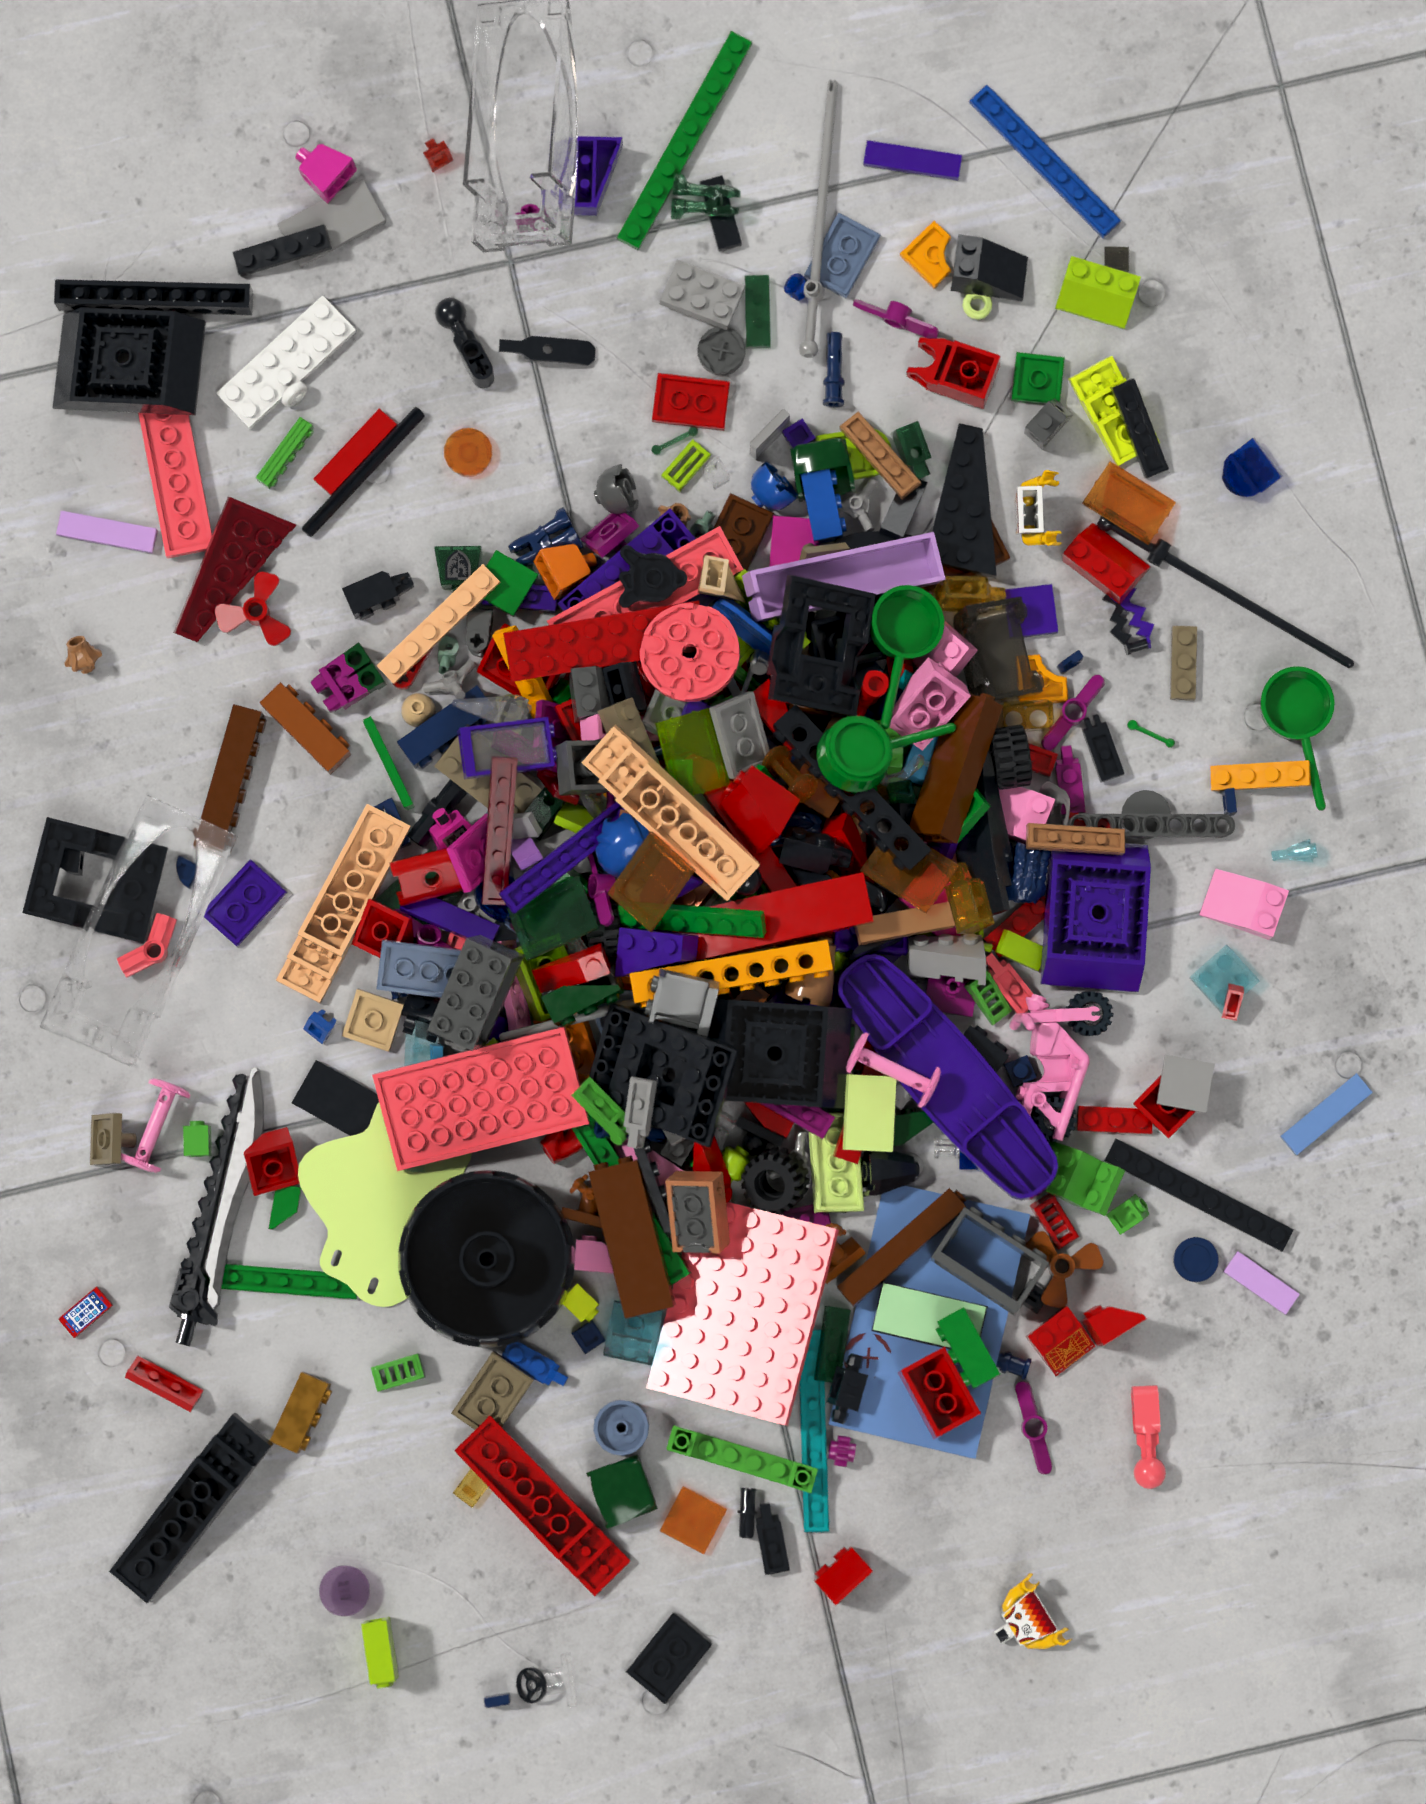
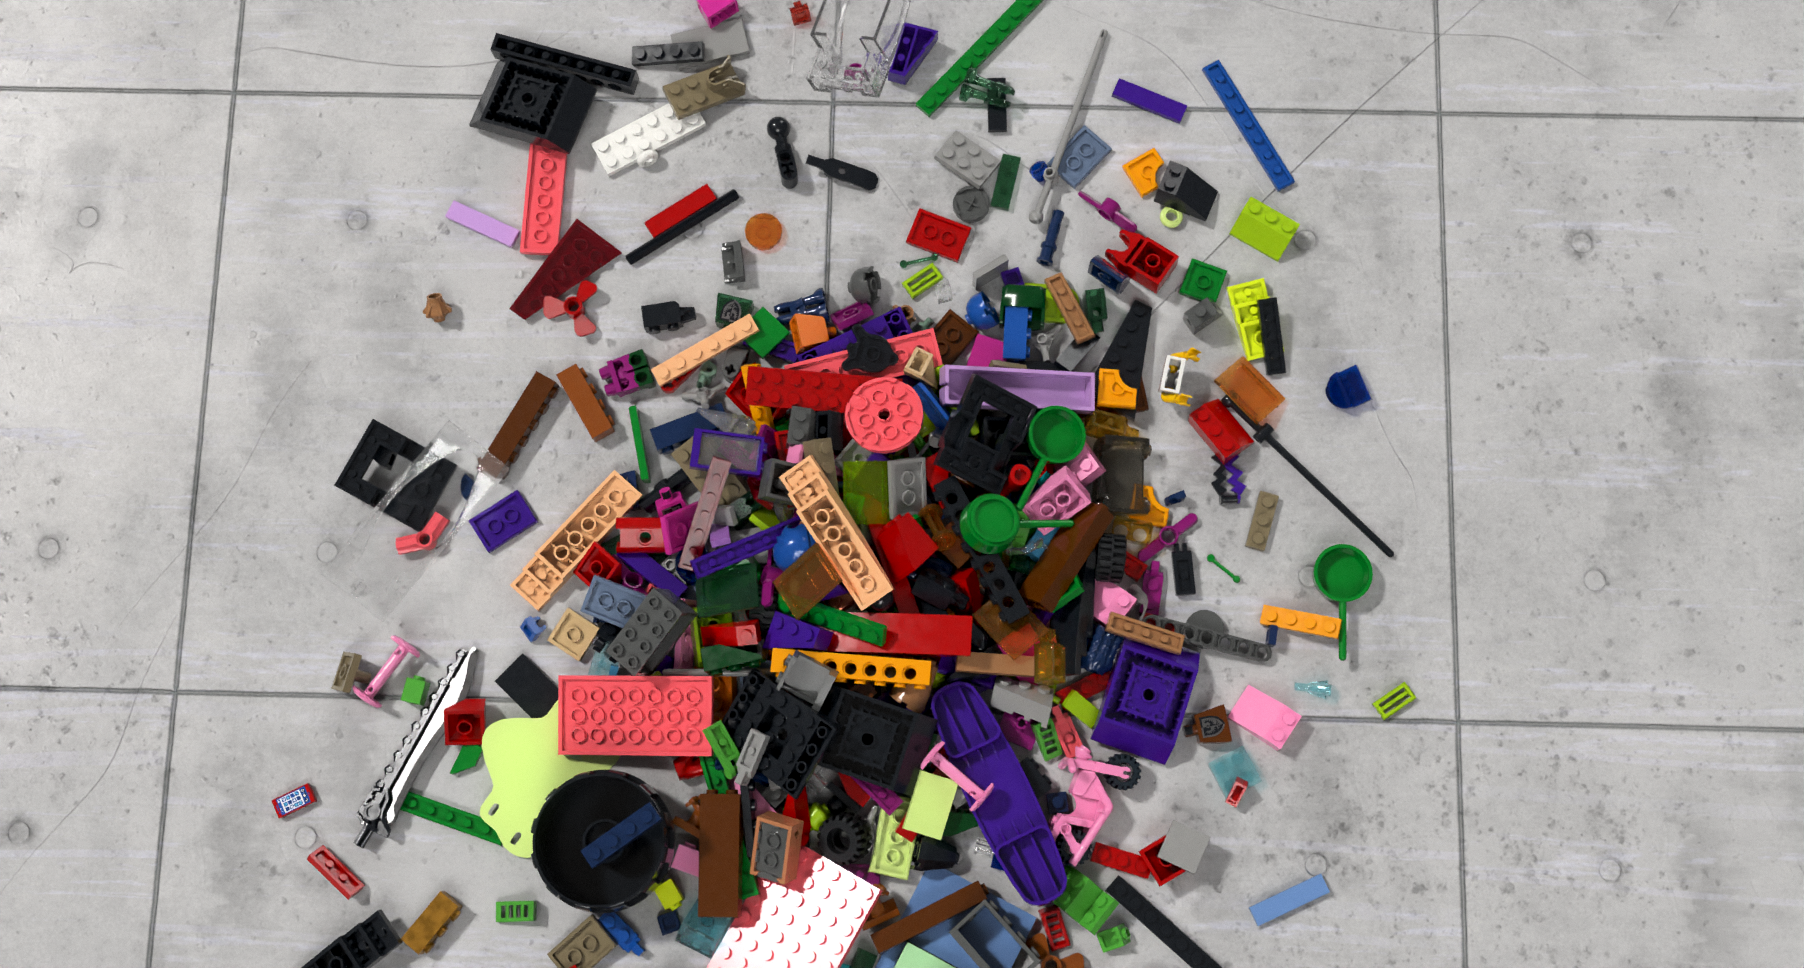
camera: 20 degrees right, 5 degrees down
(285, 453) = (628, 199): bright green piece -> none
(342, 287) = (704, 90): none -> dark tan plate
(417, 709) = (673, 409): tan brick -> none
(440, 502) = (733, 262): none -> dark grey hinge
(514, 1243) = (621, 835): none -> dark blue brick
(918, 401) = (1108, 274): none -> dark blue slope
(962, 548) = (1113, 391): none -> light orange tile
(1041, 610) = (1162, 453): dark purple tile -> none
(1117, 258) = (1285, 207): clear smoke tile -> none
(1181, 932) = (1210, 727): none -> reddish brown torso
(1381, 858) = (1380, 710): none -> lime tile

